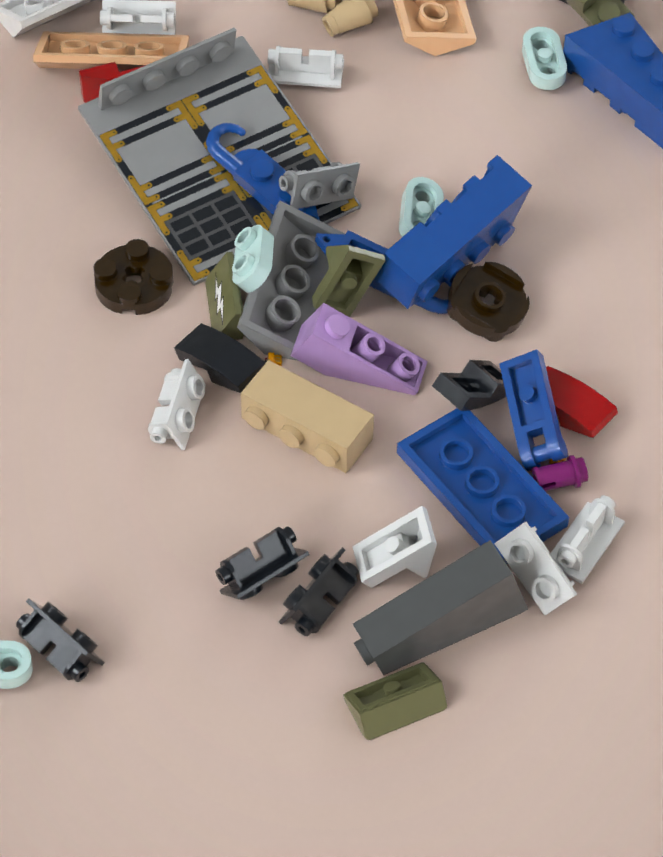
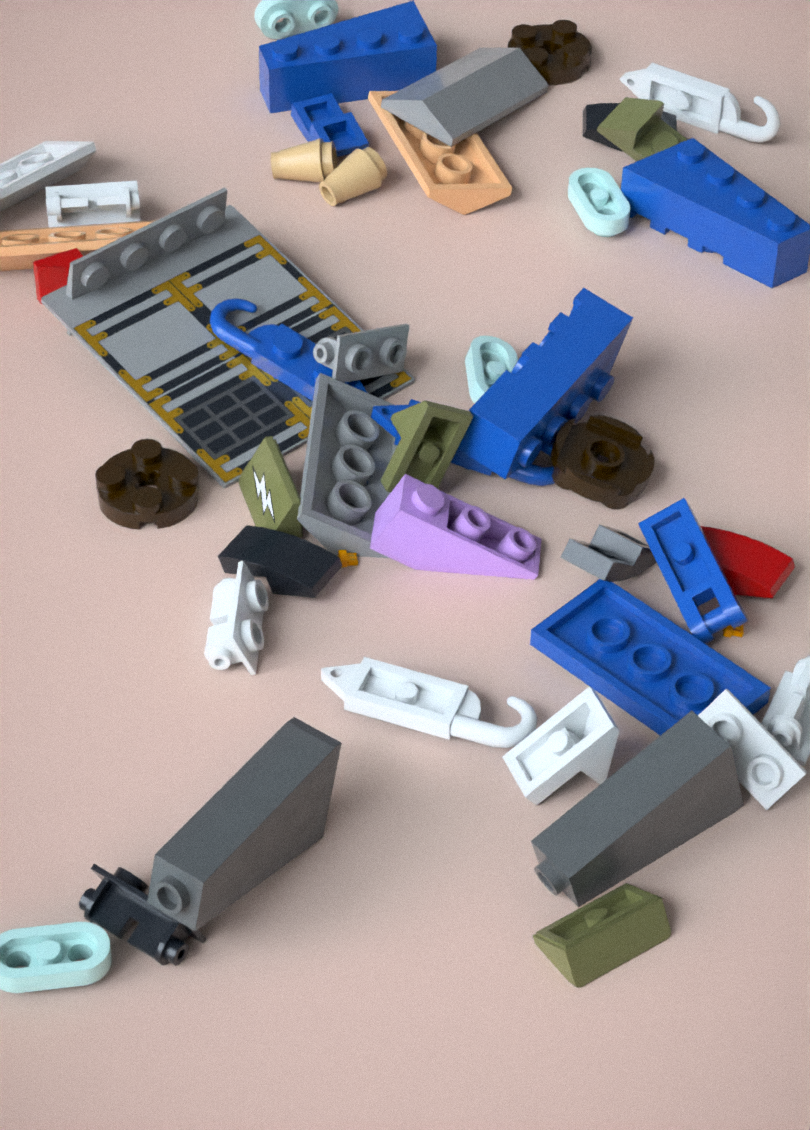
camera: 10 degrees left, 10 degrees down
(144, 586) = (248, 827): none -> dark grey slope
(248, 574) = (374, 804): black hinge -> none
(252, 257) = (301, 437): light aqua plate -> none
(303, 493) = (423, 703): none -> white plate
(307, 416) = (408, 613): tan brick -> none
(318, 69) = (331, 238): white hinge -> none
(329, 579) = (459, 830): black hinge -> none
(561, 474) = (754, 640): magenta pin -> none

